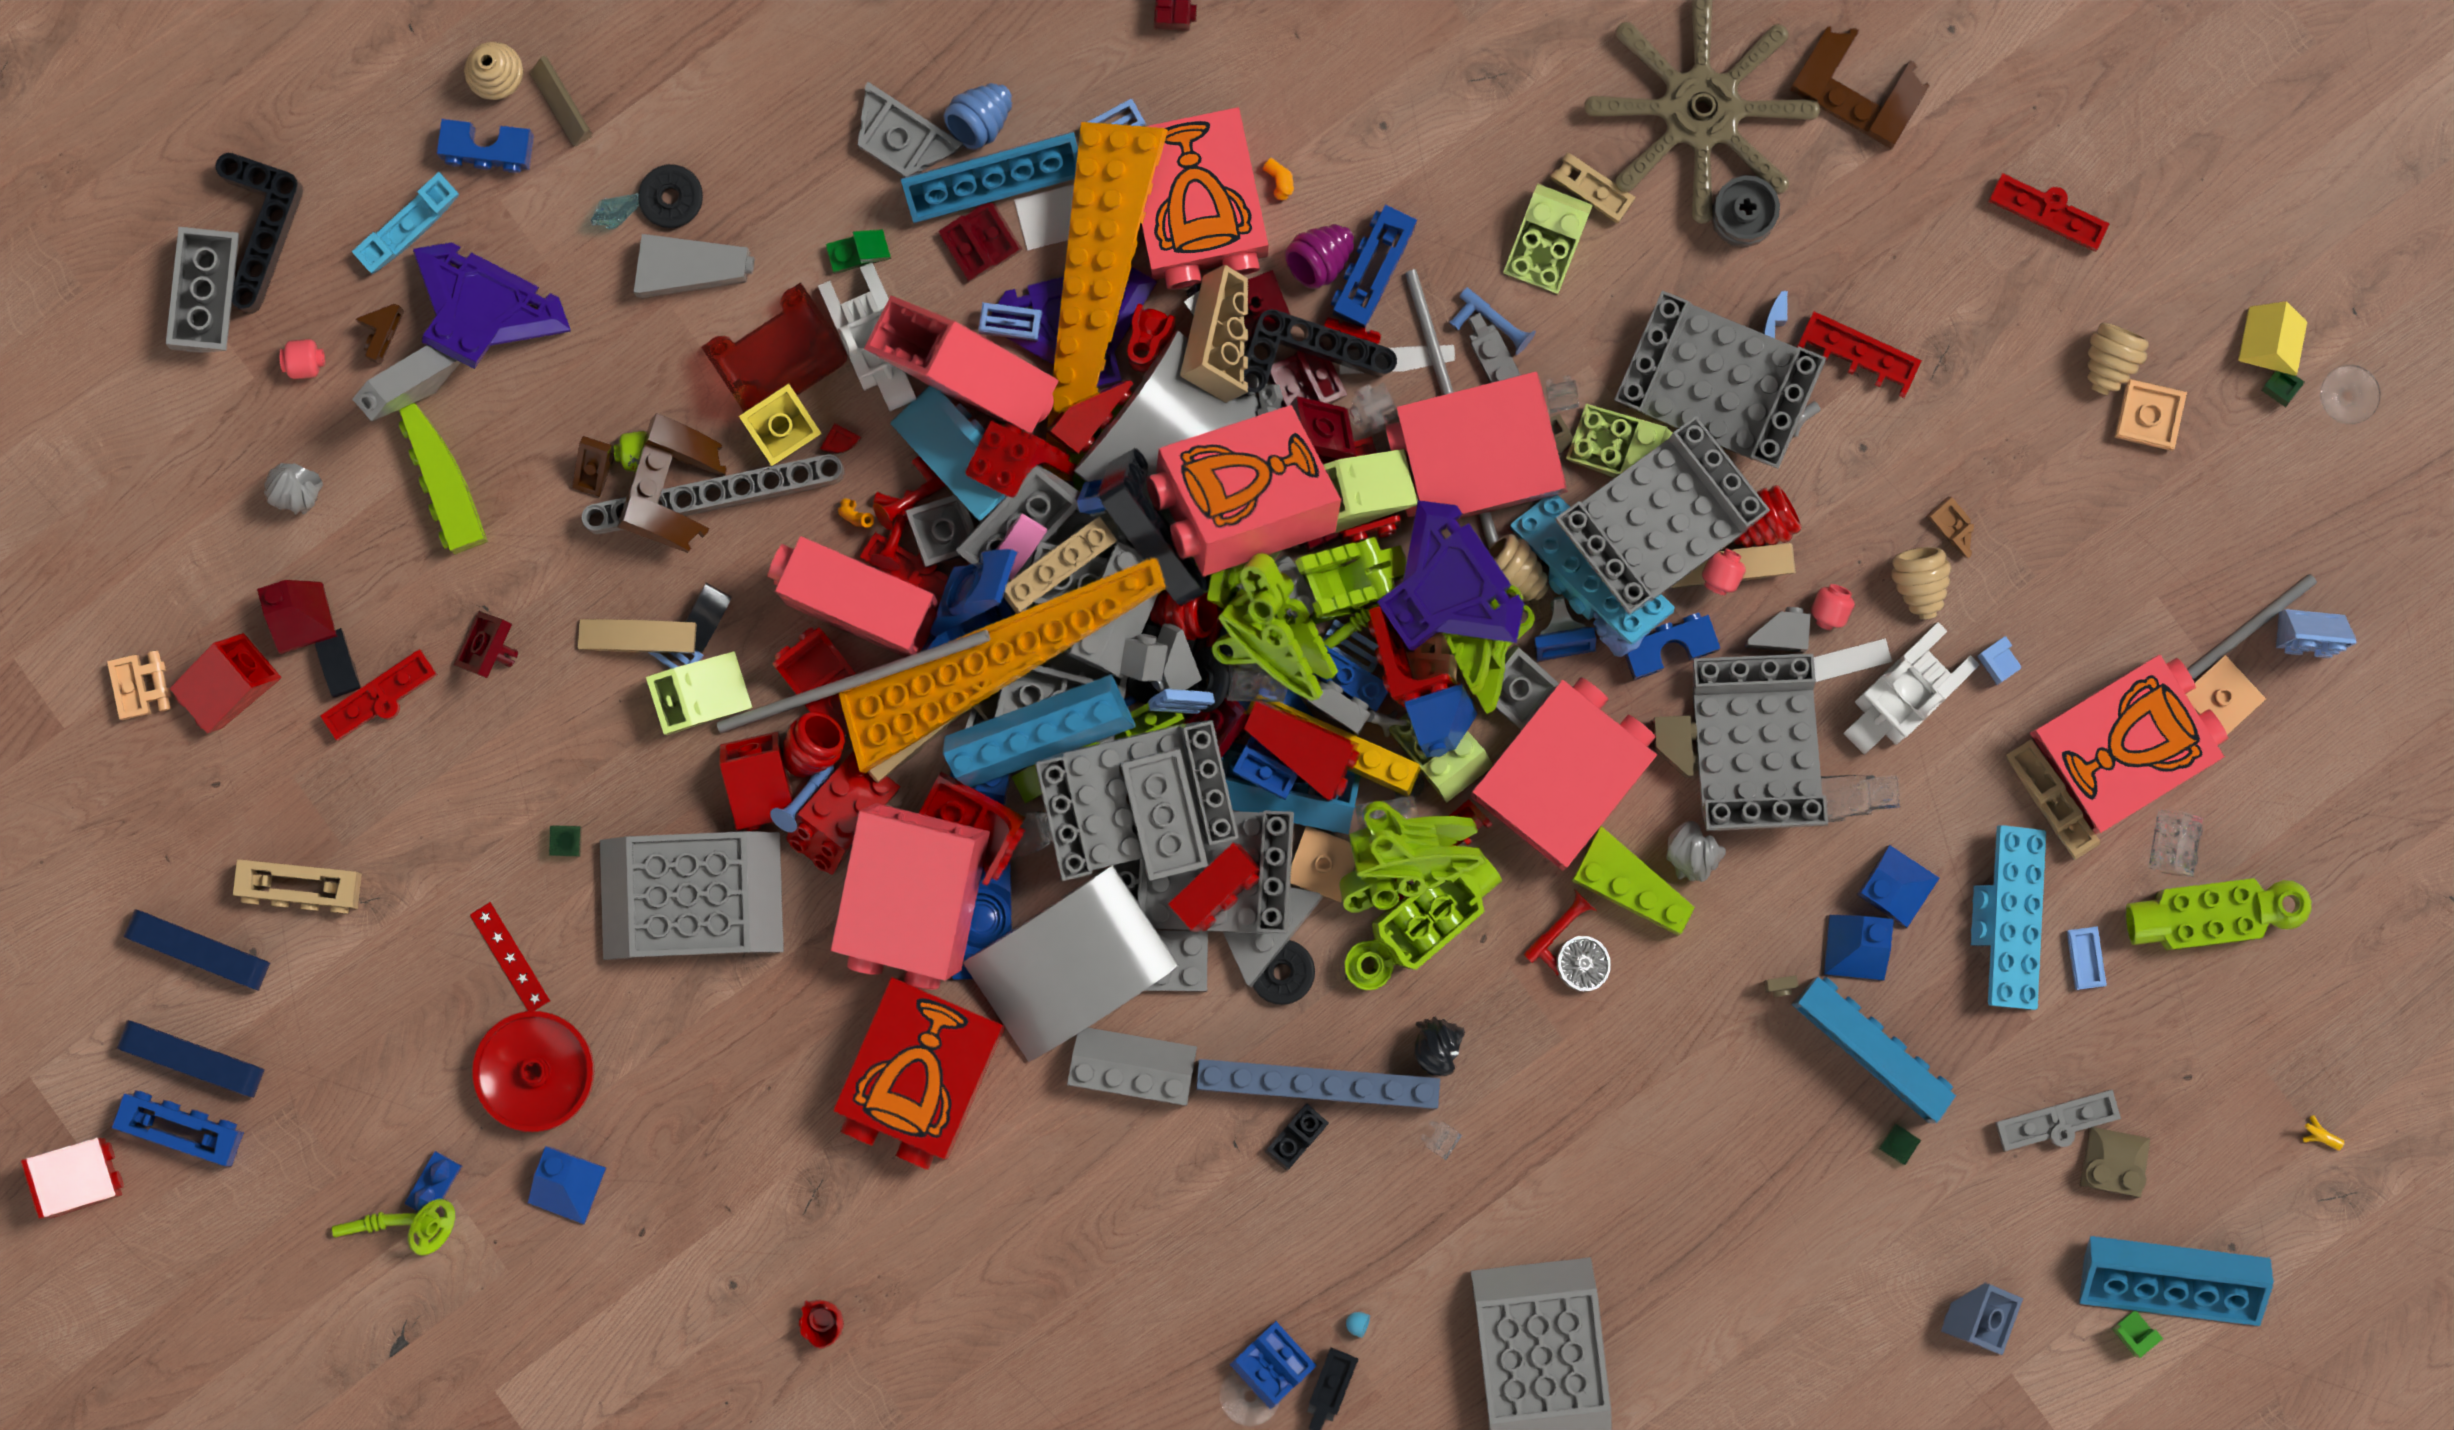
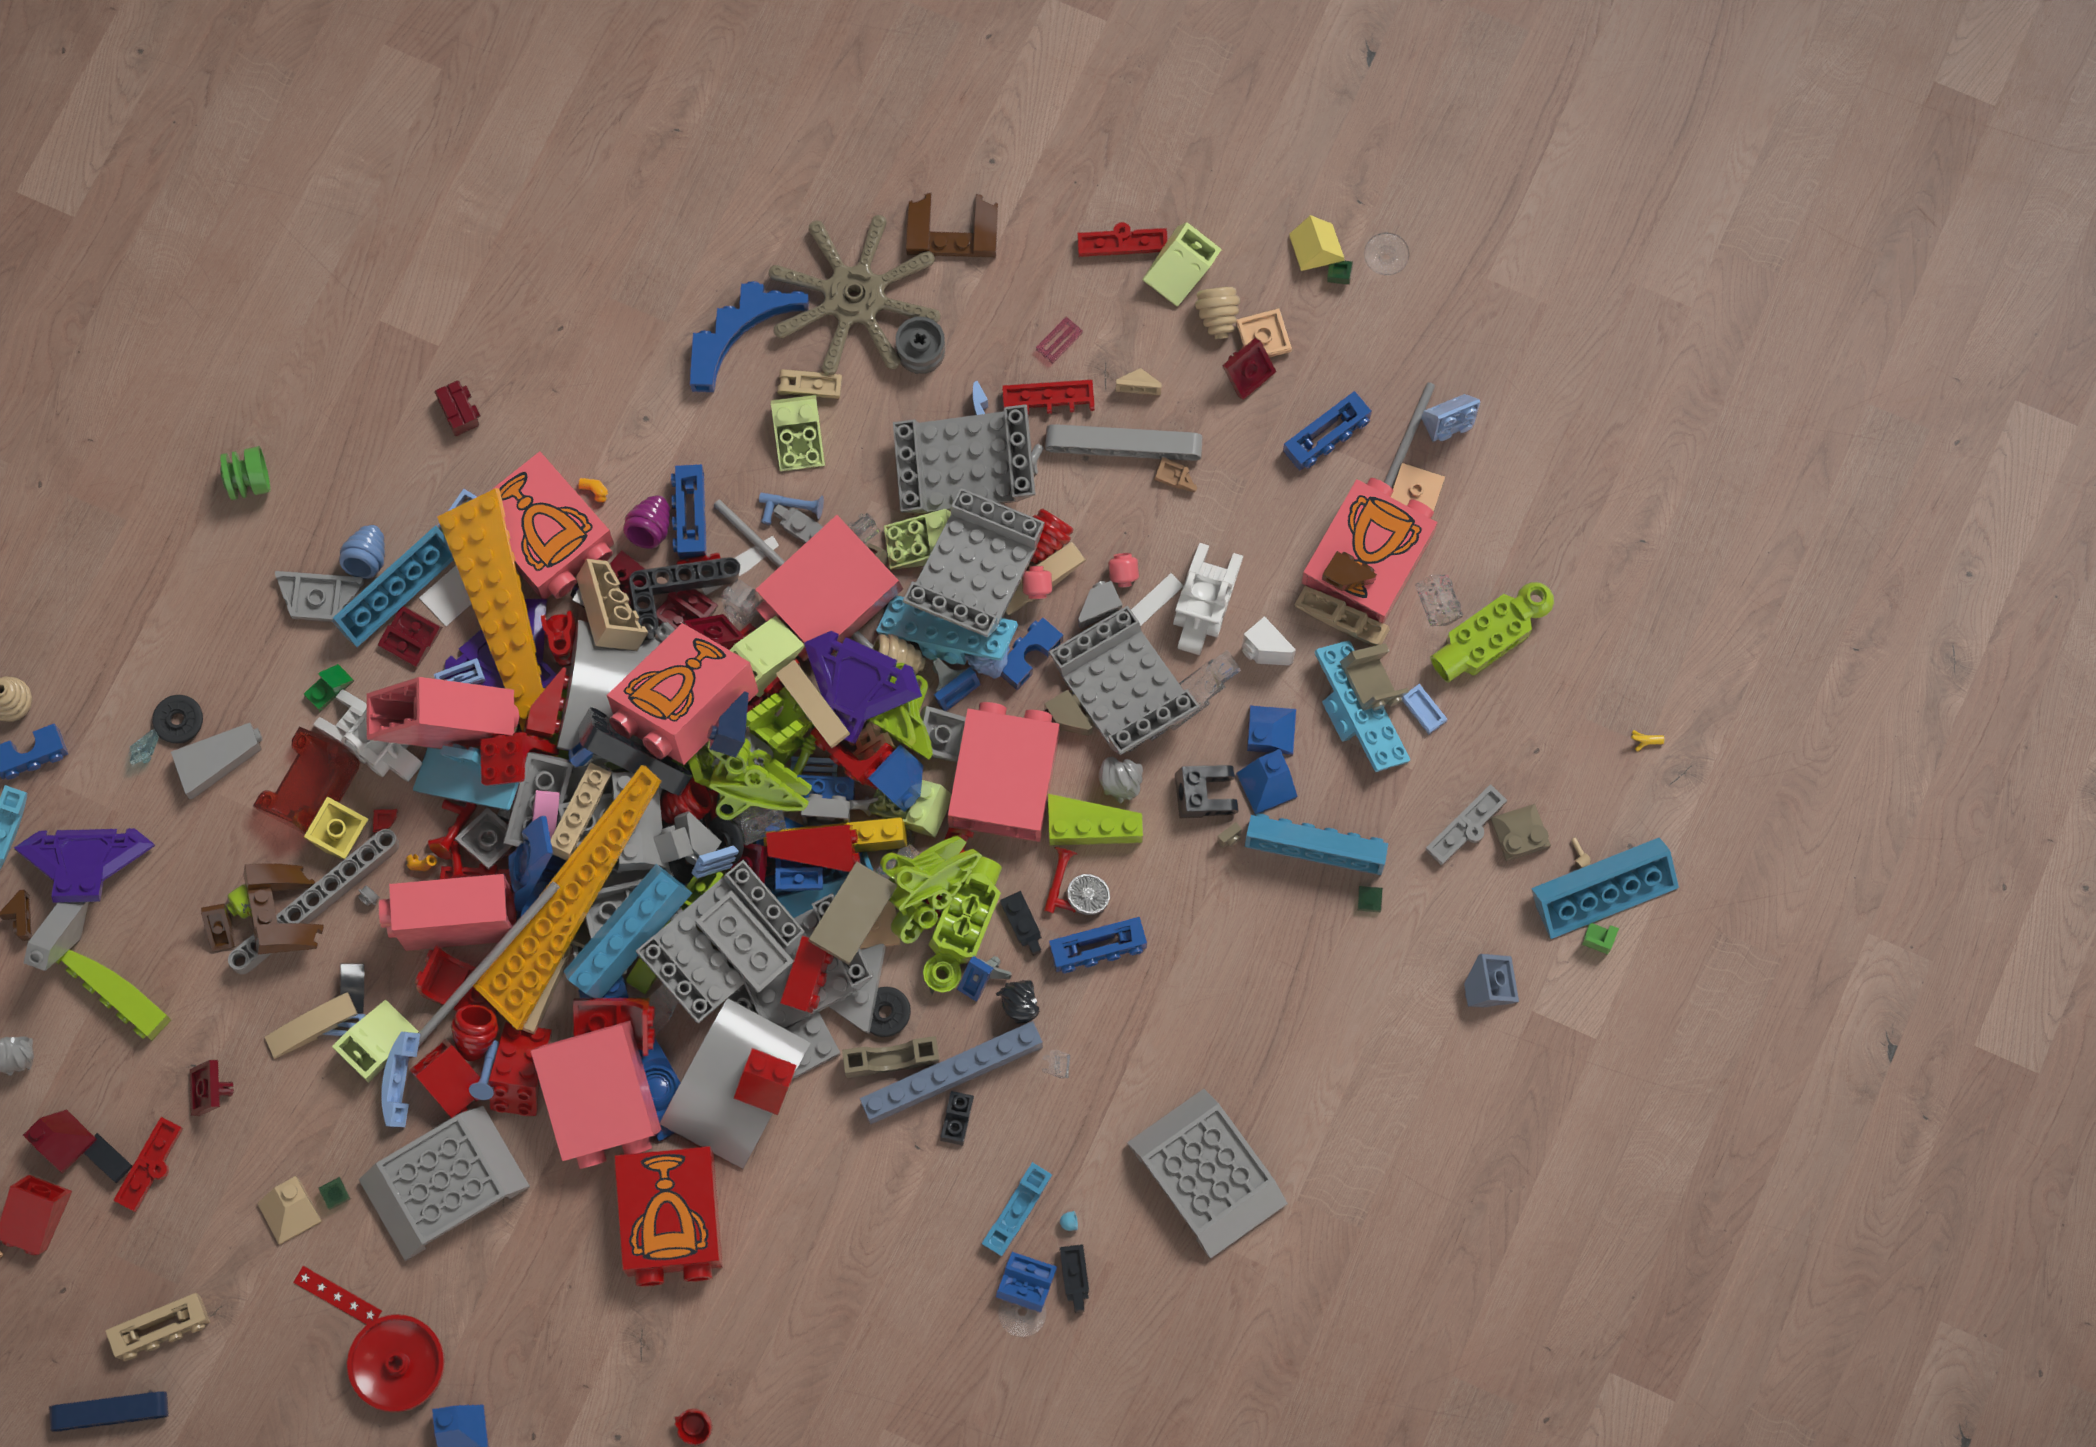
camera: 30 degrees left, 10 degrees down
(506, 832) = (289, 1210): none -> tan slope
(560, 102) = (67, 696): dark tan slope -> none
(695, 750) = (394, 1078): none -> light blue slope
(777, 520) = (368, 896): none -> light grey plate
(1101, 989) = (765, 1081): none -> red slope
(1132, 1066) = (817, 1132): light grey slope -> none
(1259, 1029) = (910, 1055): none -> dark tan arch
(1273, 572) = (730, 729): none -> dark blue slope
(1302, 850) = (852, 913): none -> dark tan tile
(1306, 1279) = (1017, 1209): none -> dark azure slope
(1389, 581) = (813, 703): none -> tan slope
(1410, 989) = (977, 976): none -> blue piece
(1492, 953) = (1022, 921): none -> black hinge
(1579, 60) = (731, 323): none -> blue arch
(1610, 1040) = (1091, 957): none -> blue brick
(1767, 913) = (1192, 791): none -> black brick
(1886, 298) = (1047, 353): none -> clear pink tile
(1916, 455) = (1123, 442): none -> light grey beam
(1922, 579) = (1173, 519): tan piece -> none
(1947, 788) = (1267, 645): none -> white slope
(1975, 392) = (1138, 382): none -> tan slope
(1999, 660) = (1254, 546): light blue panel -> none
(2044, 893) = (1370, 679): none -> dark tan panel
(2084, 761) = (1346, 573): none -> reddish brown slope
(2102, 277) = (1181, 263): none -> yellowish green slope
(2110, 446) = (1249, 368): none -> dark red tile
(2169, 1235) = (1584, 859): none -> tan hand
(2208, 563) = (1354, 408): none -> blue brick

